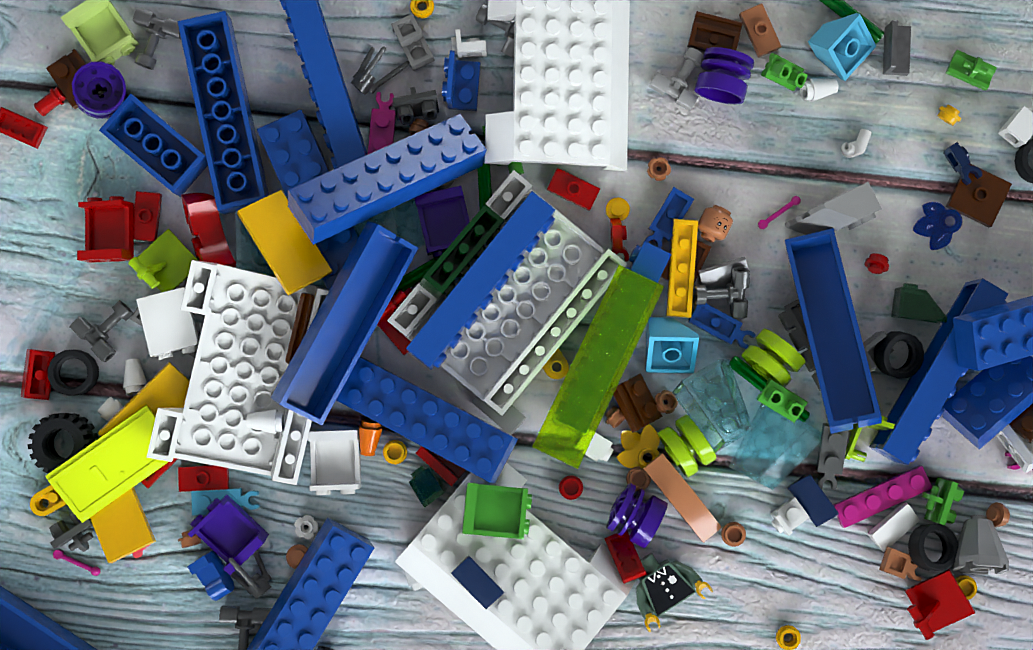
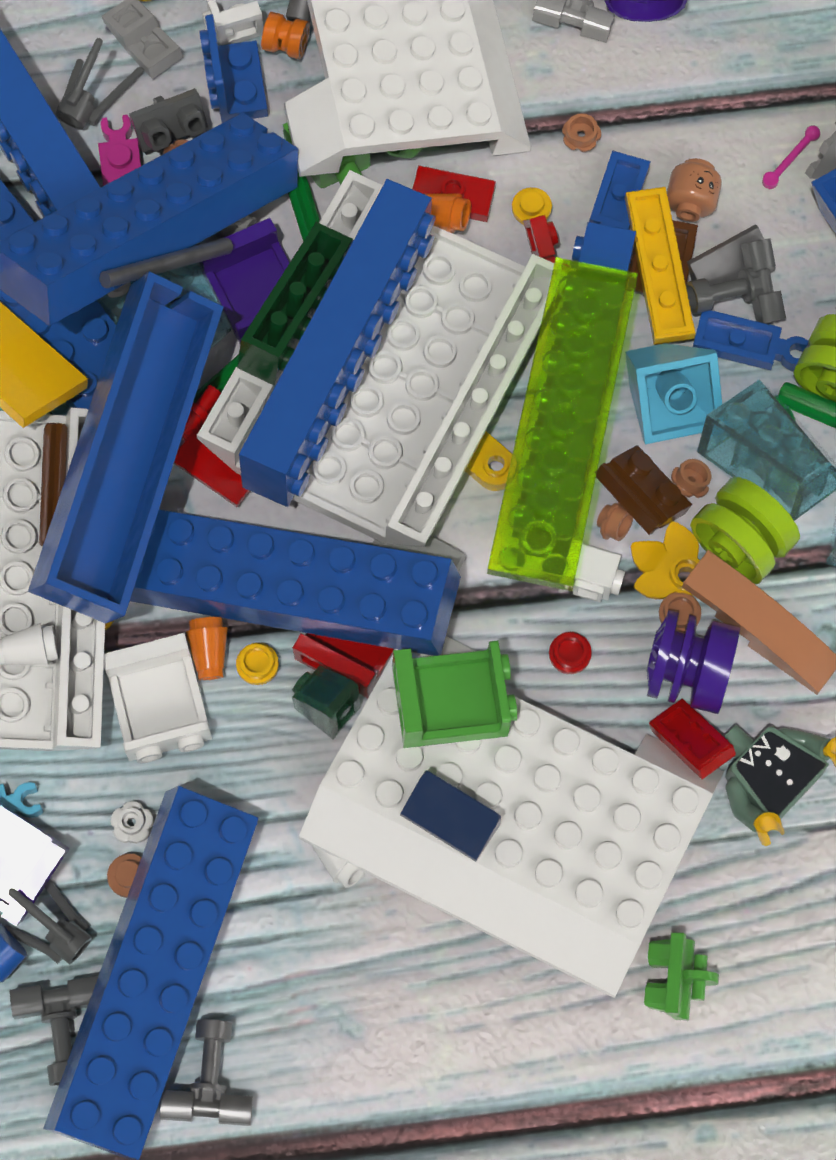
camera: 10 degrees left, 15 degrees down
(391, 211) = (166, 262): none -> flat silver bar
(499, 64) = (285, 35): none -> orange wheel
(563, 202) = (450, 211): none -> orange cone

